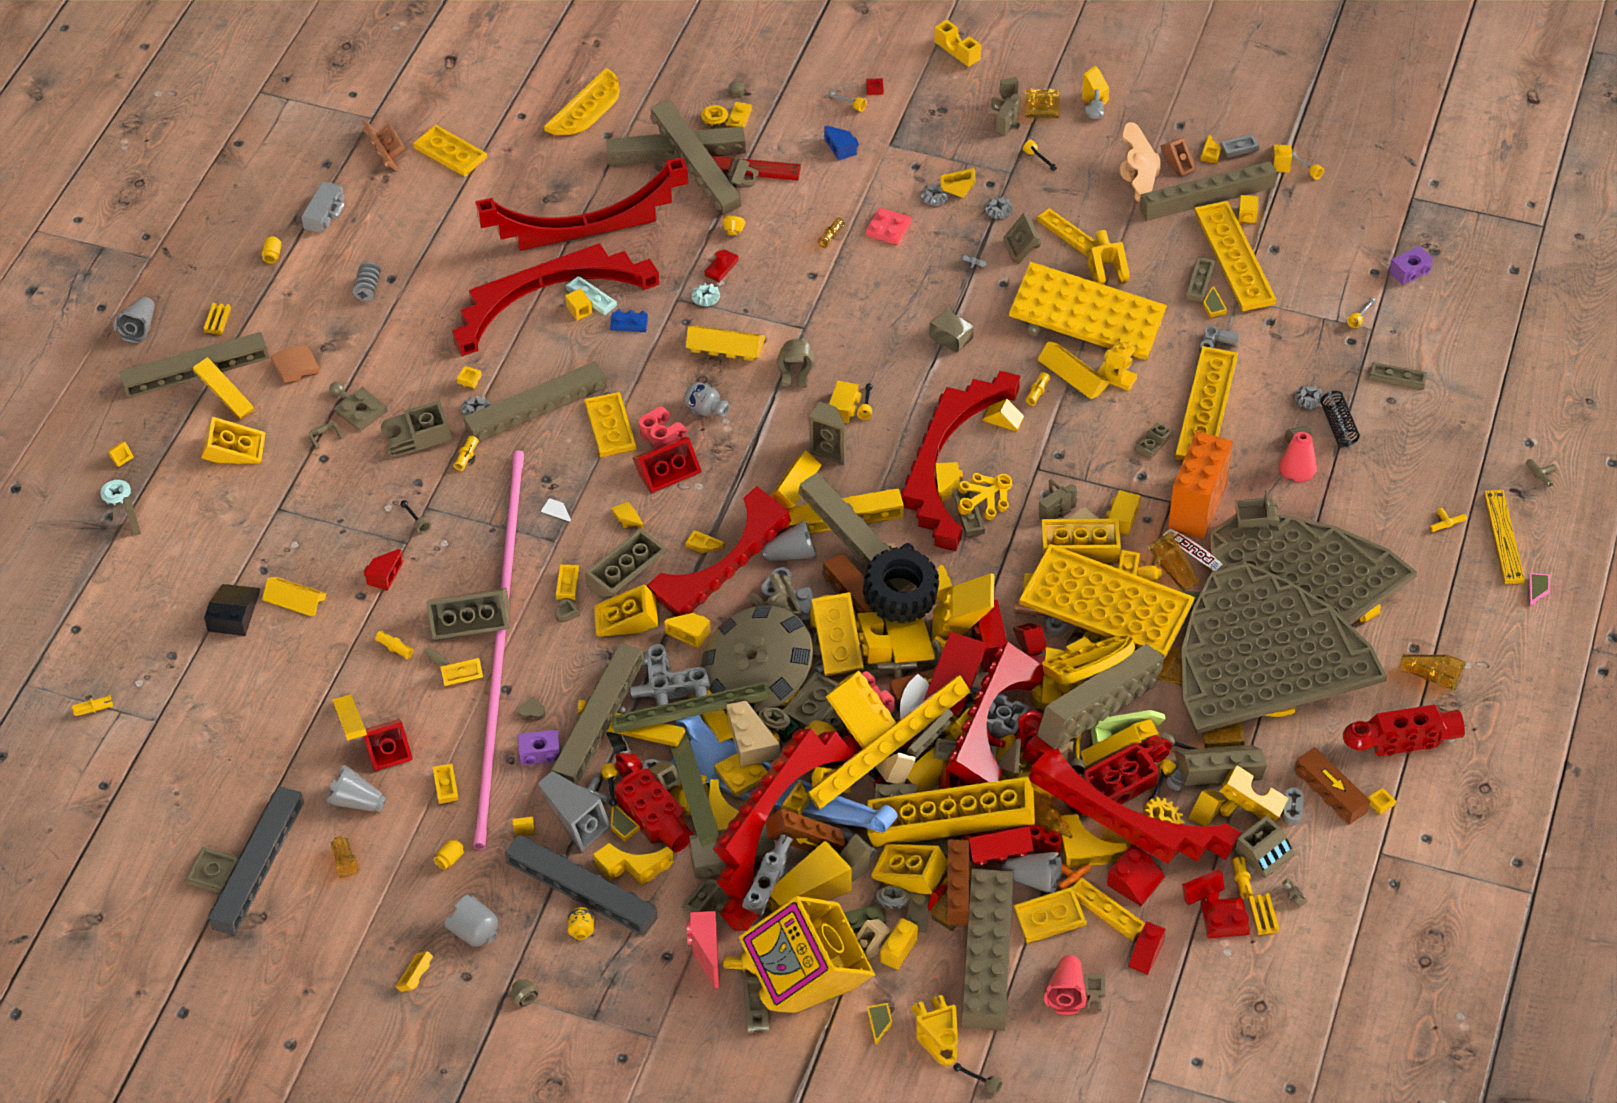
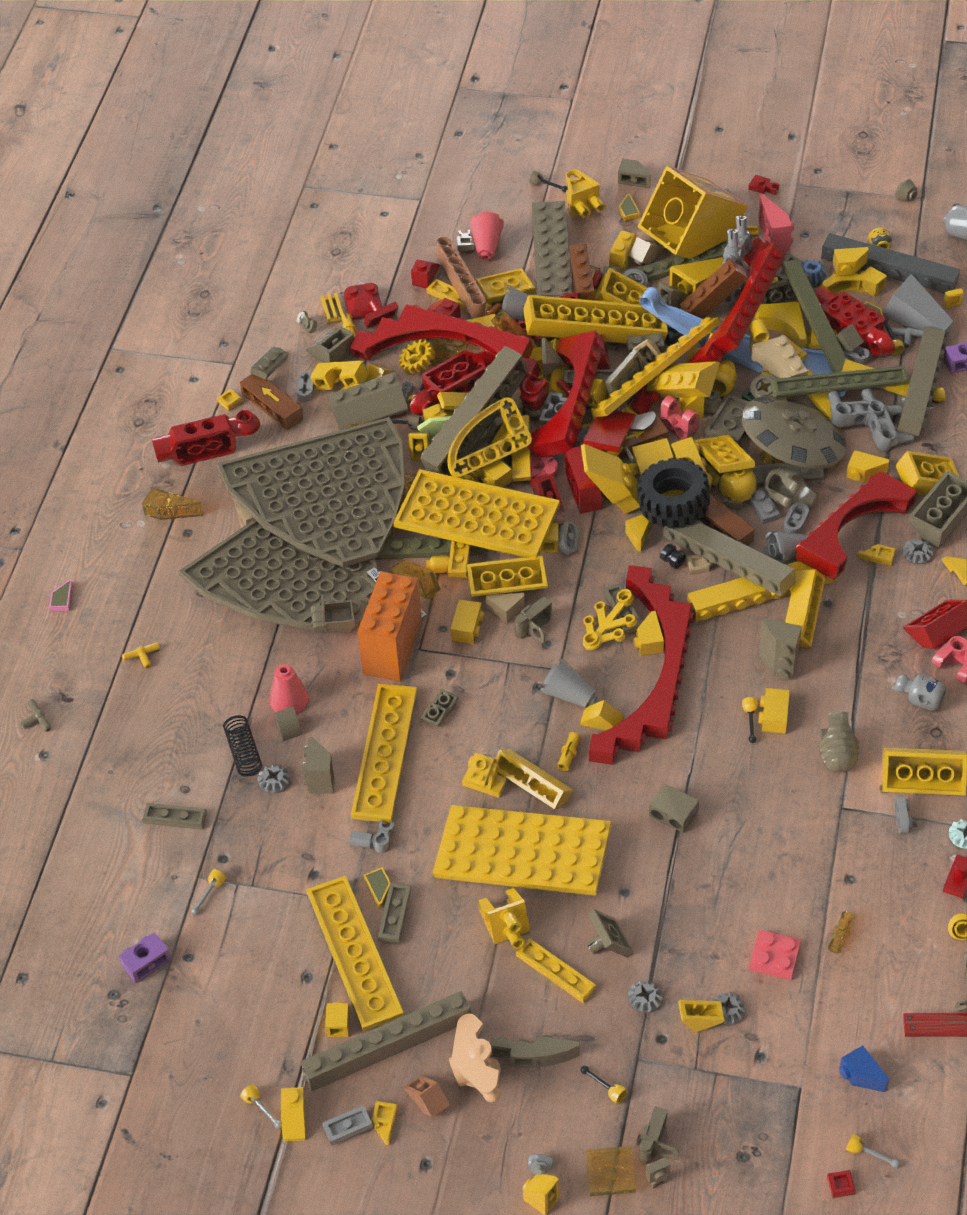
camera: 175 degrees right, 0 degrees up
(632, 866) = (849, 260): none -> yellow slope
(672, 539) = (917, 556): none -> light grey gear
(677, 883) = (815, 270): none -> medium blue gear
(700, 1039) = (762, 184): none -> red plate
(755, 305) = (901, 807): none -> light grey plate
(768, 753) = (758, 332): none -> yellow piece
(865, 1070) = (633, 174): none -> dark tan slope
(973, 261) = (663, 910): light grey piece -> none
(1012, 587) = (568, 537): none -> light grey plate
(1033, 437) = (568, 685): none -> light grey cone
(1091, 173) = (542, 1053): none -> dark tan slope
(1108, 930) = (460, 277): none -> nougat beam
(1164, 698) = (417, 444): none -> yellow slope
(1268, 384) = (318, 768): none -> dark tan slope
(1336, 828) = (269, 362): none -> dark tan plate
(1504, 537) = (87, 645): yellow tile -> none

